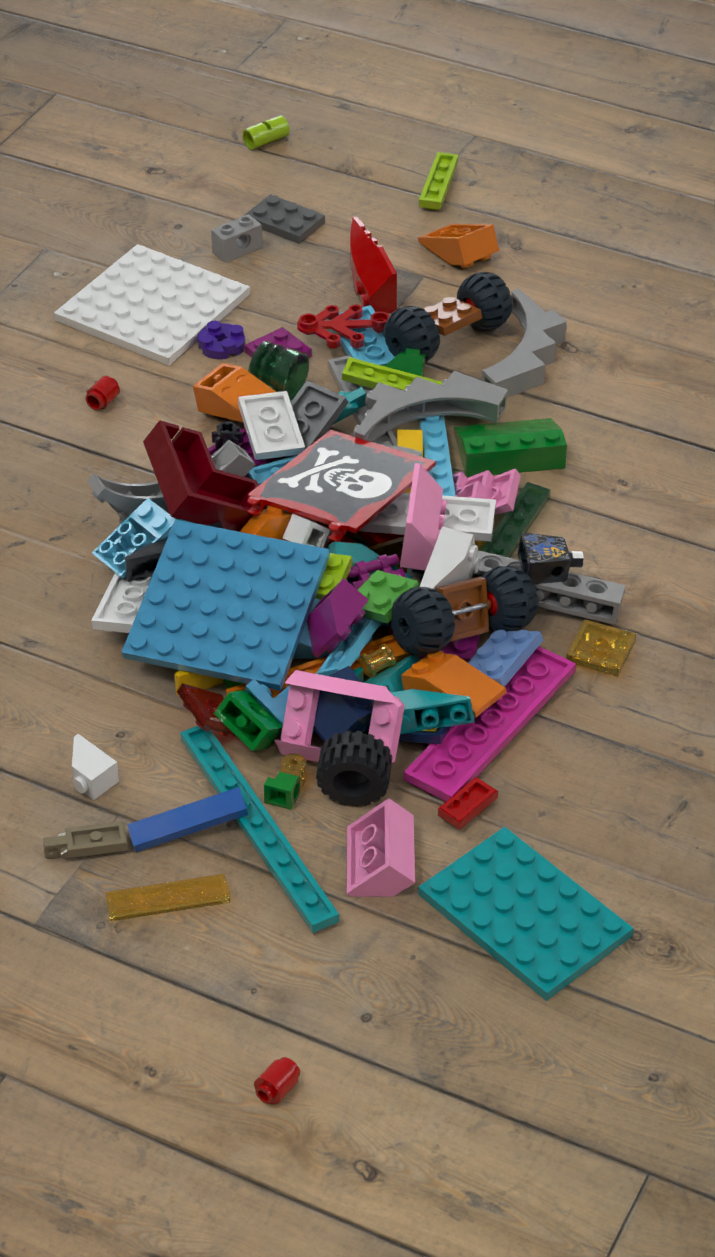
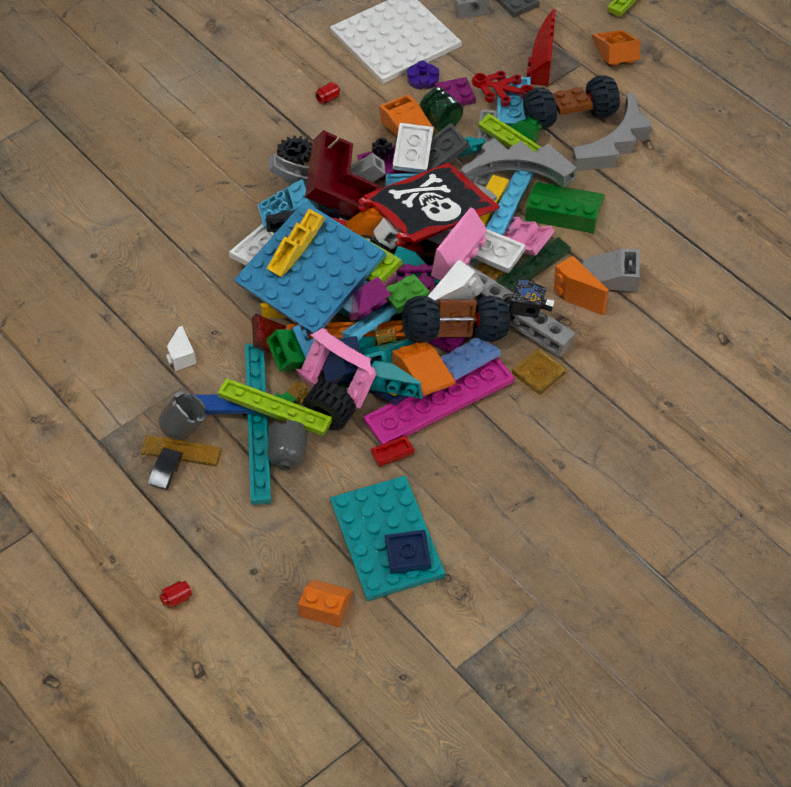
camera: 25 degrees right, 10 degrees up
(87, 841) = (150, 396): dark tan hinge -> none
(104, 467) = (295, 150): none -> black gear
(152, 848) = (182, 416): none -> dark grey cylinder
(160, 925) = (164, 468): none -> black slope
(196, 574) = (297, 242): none -> yellow slope
(280, 792) = (274, 406): none -> lime plate
(322, 836) = (287, 444): none -> dark grey cylinder
(381, 852) = (320, 466): bright pink slope -> none
(495, 1021) = (324, 602): none -> orange slope
(570, 916) = (407, 551): none -> dark blue tile
(599, 528) = (580, 286): none -> orange slope
(624, 501) = (616, 269): none -> light grey slope

